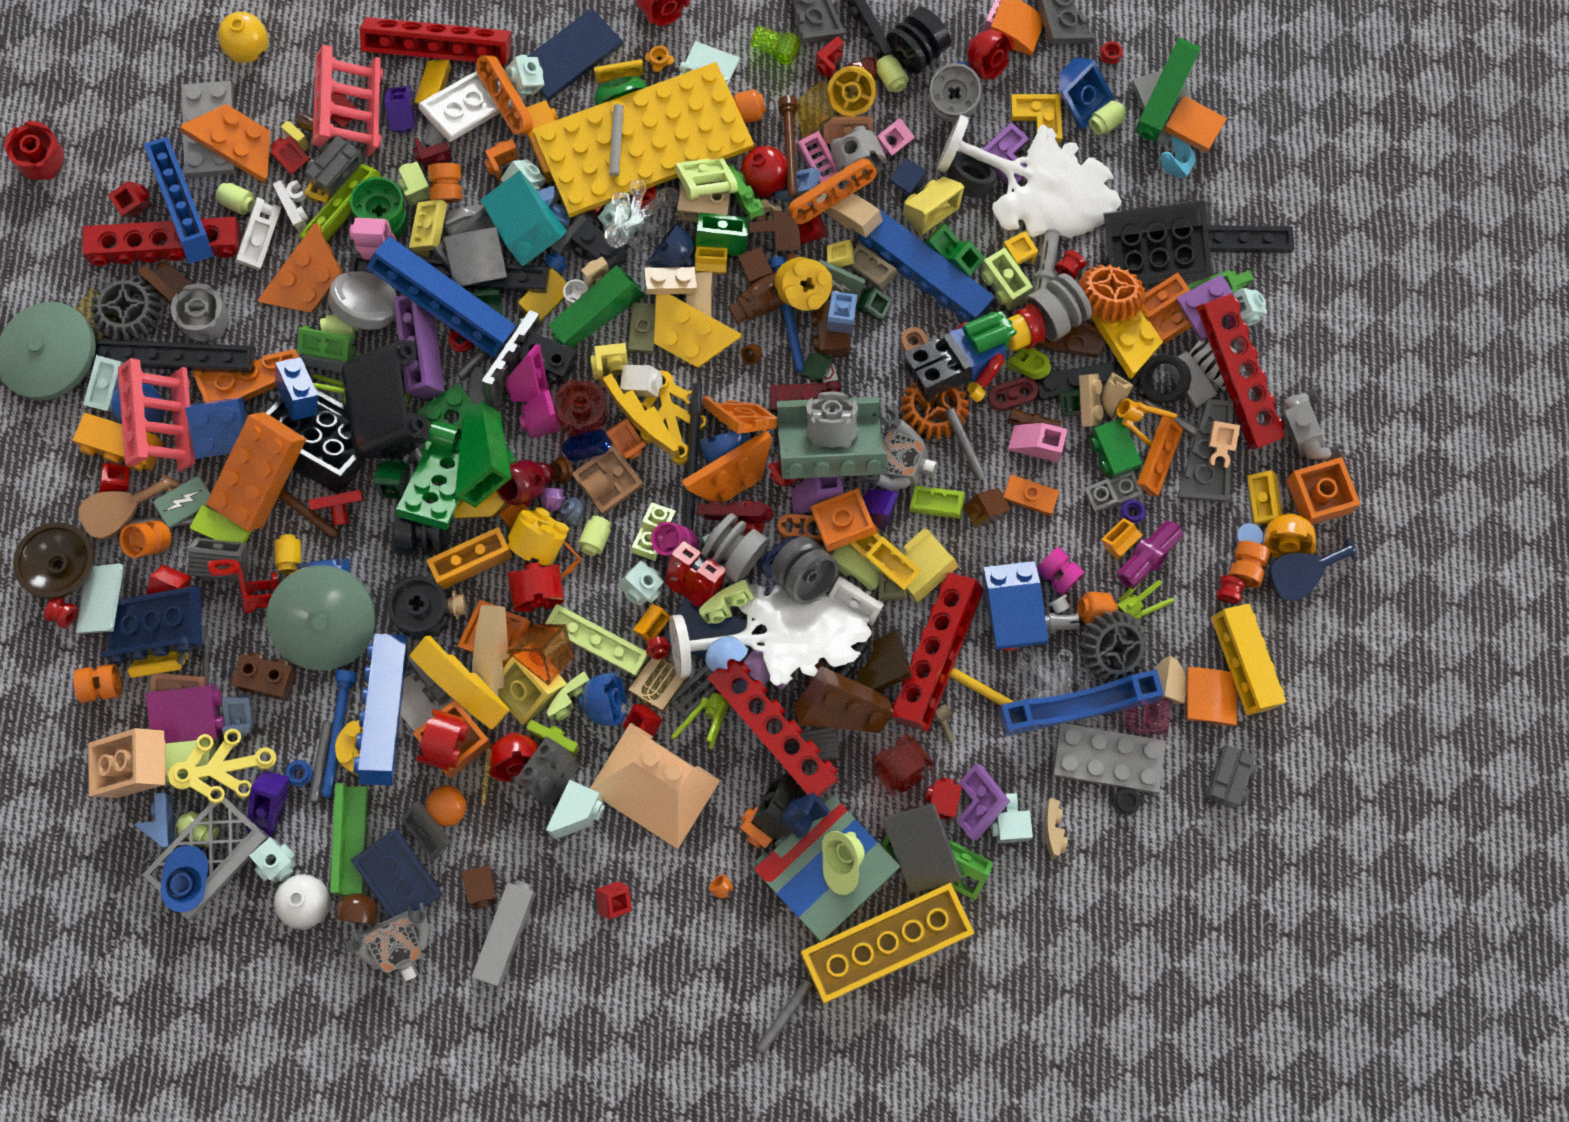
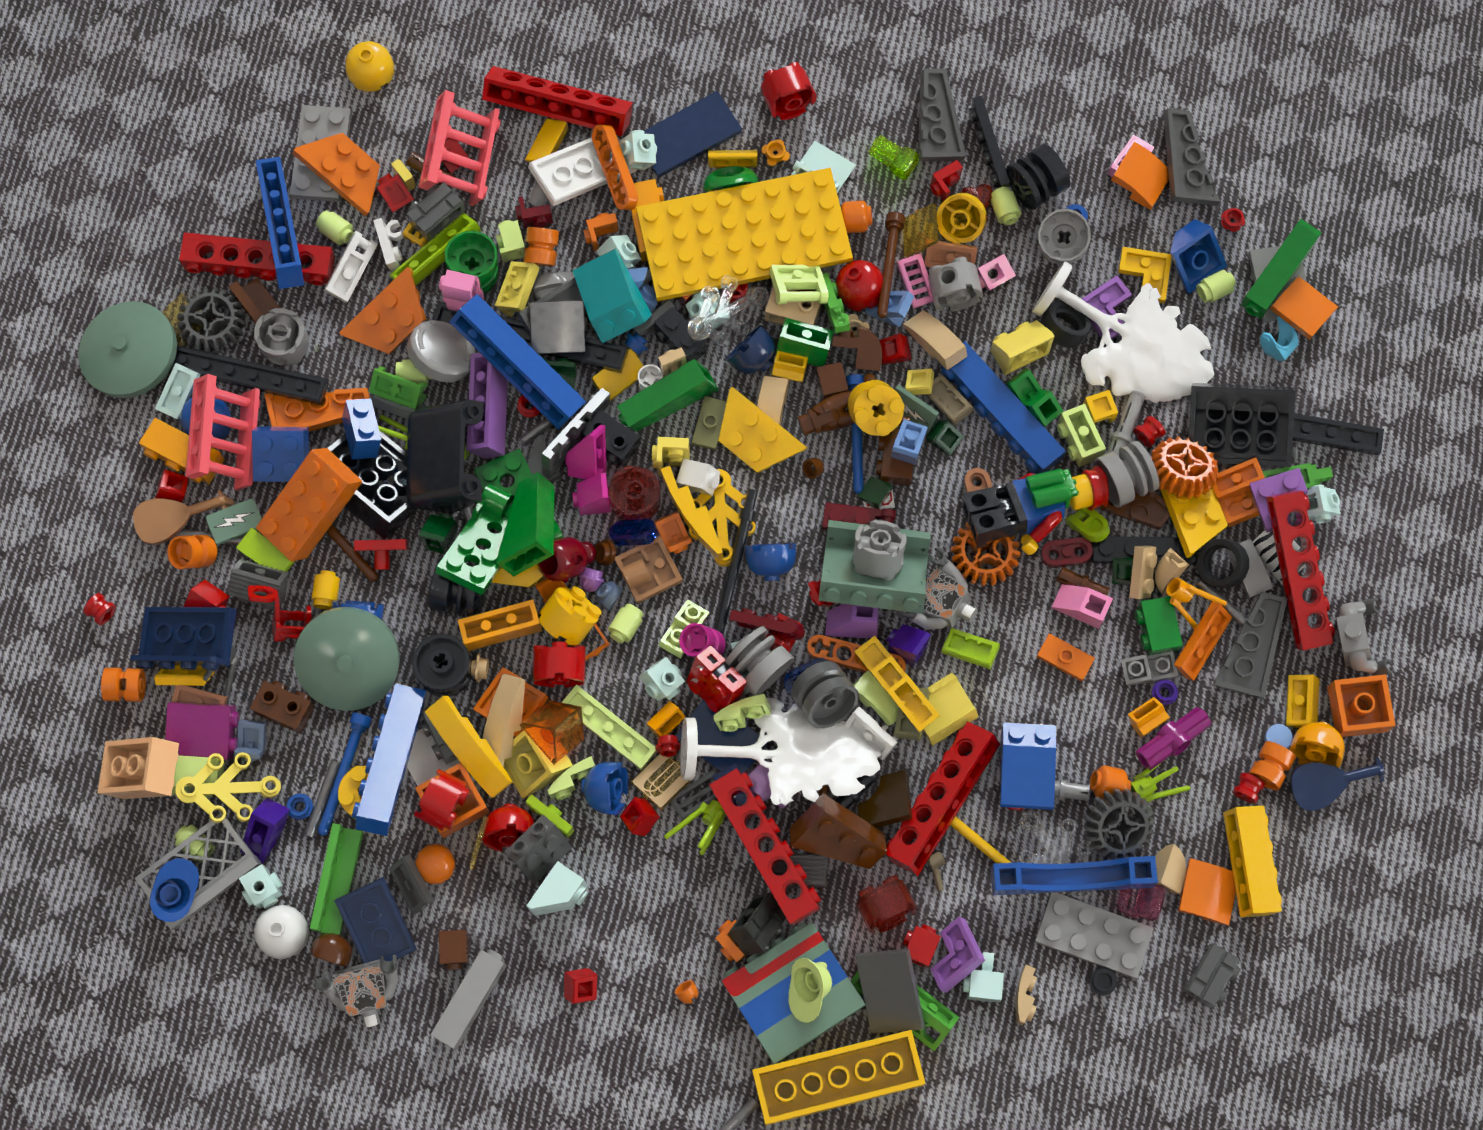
camera: 15 degrees right, 0 degrees up
(34, 151) = (150, 149): red brick -> none
(41, 553) = (94, 545): dark brown dish -> none
(100, 599) = (139, 602): light aqua piece -> none
(130, 199) = (233, 212): red brick -> none
(163, 827) = (161, 836): medium blue slope -> none
(400, 109) = (510, 163): dark purple slope -> none
(616, 140) = (716, 232): light grey bar -> none
(654, 786) = (639, 881): light nougat slope -> none
(670, 280) = (744, 381): plate -> none
(724, 650) = (730, 760): light blue hair -> none
(732, 471) = (771, 584): orange wing -> none
(741, 416) = (790, 530): orange wing -> none
(802, 813) = (778, 935): dark blue panel -> none
(830, 188) = (921, 316): orange beam -> none
(843, 519) = (871, 651): orange plate -> none
(909, 177) = (1002, 315): dark blue panel -> none
(965, 443) = (1008, 594): flat silver bar -> none
(986, 507) = (1018, 663): reddish brown brick -> none
(989, 53) = (1107, 201): red cylinder -> none
(1053, 564) = (1074, 731): dark pink wheel -> none
(1059, 604) = (1073, 772): white piece -> none
(1223, 438) = (1269, 634): light nougat plate -> none

